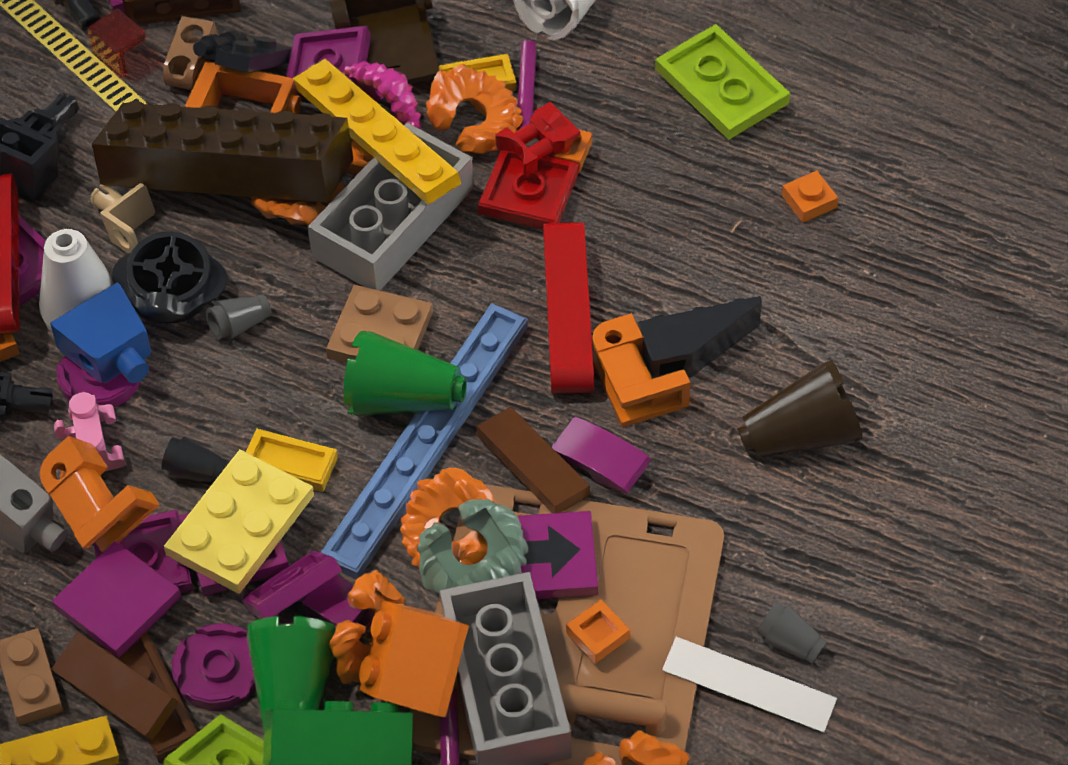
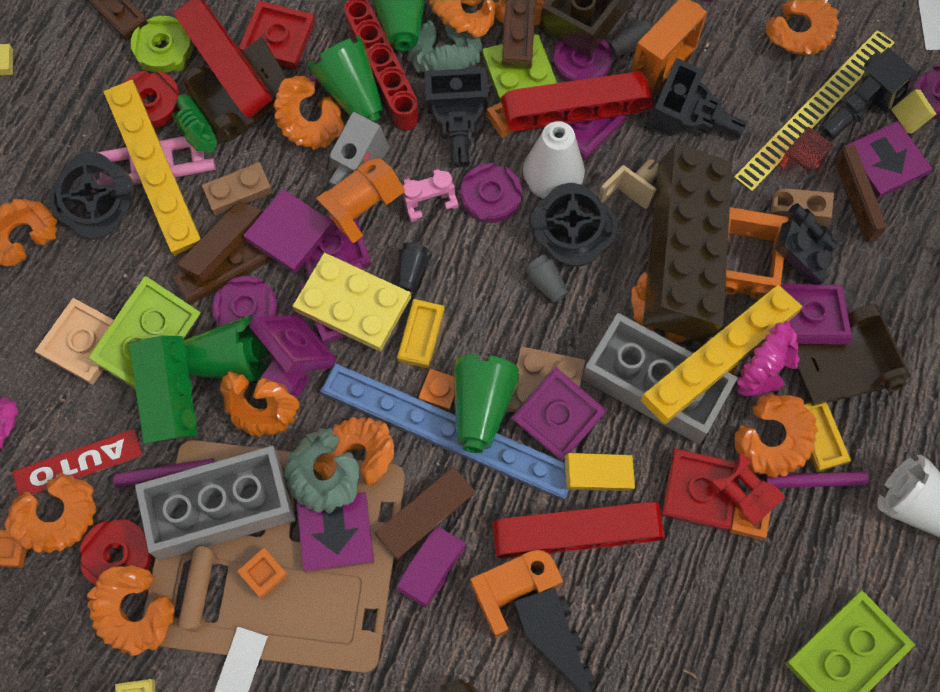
camera: 85 degrees right, 15 degrees up
(104, 337) = (508, 188): blue torso -> none
(370, 441) = (438, 390): none -> orange plate
(413, 657) = (219, 432): orange slope -> none
(423, 308) = (558, 413): none -> magenta tile
(498, 280) = (599, 472): none -> yellow tile

